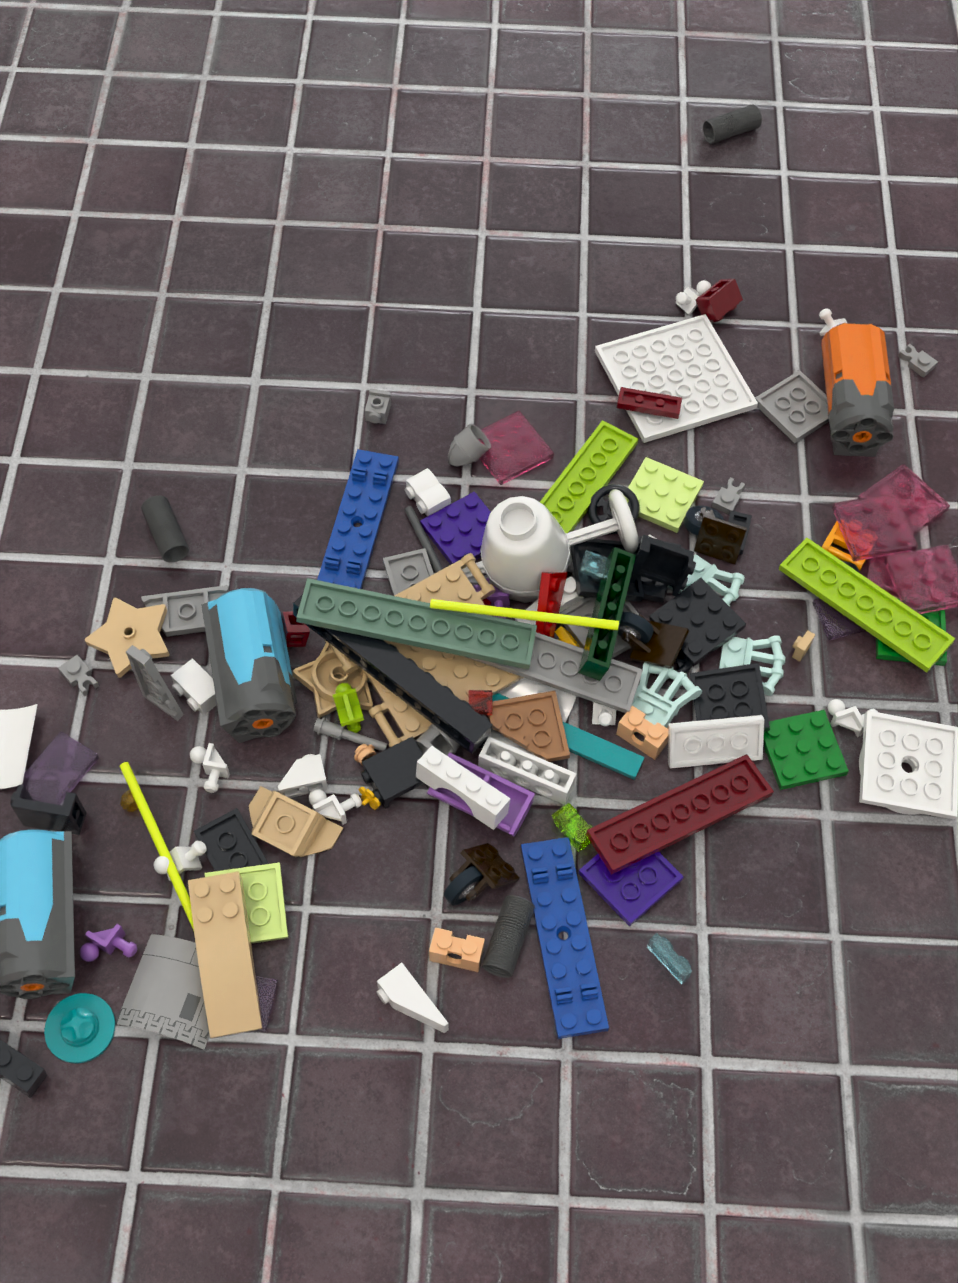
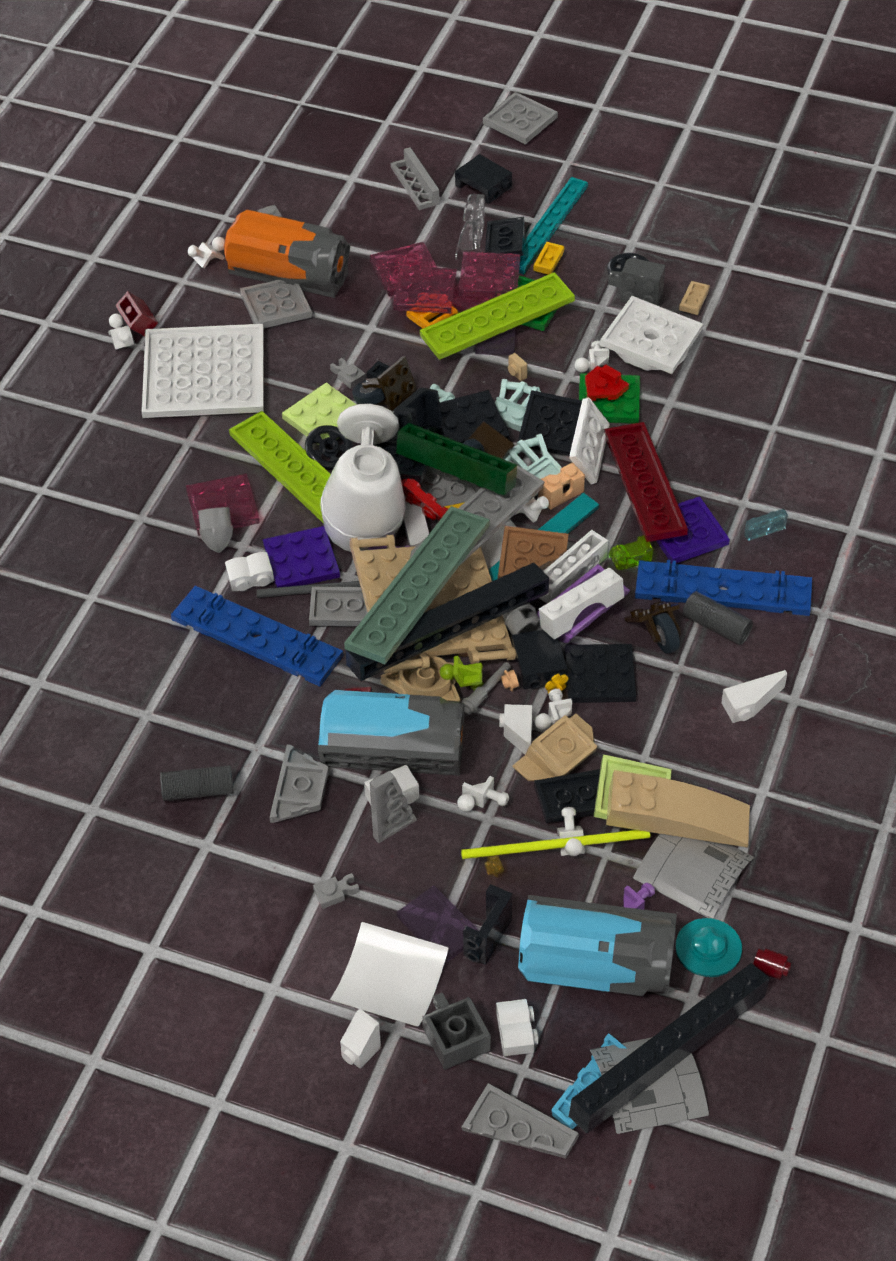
camera: 70 degrees left, 10 degrees down
(62, 1094) = (772, 963): none -> dark red brick
(130, 627) = (313, 832): tan plate -> none
(378, 406) = (127, 587): light grey brick -> none
(402, 837) = (600, 673): none -> black plate
(469, 949) = (713, 660): light nougat brick -> none
(481, 701) = (496, 572): clear red tile -> none
(524, 614) = (444, 504): neon yellow piece -> none
(593, 564) = (402, 458): clear light blue plate -> none
(649, 402) = (230, 389): dark red plate -> none
(808, 735) = (605, 383): none -> red plate

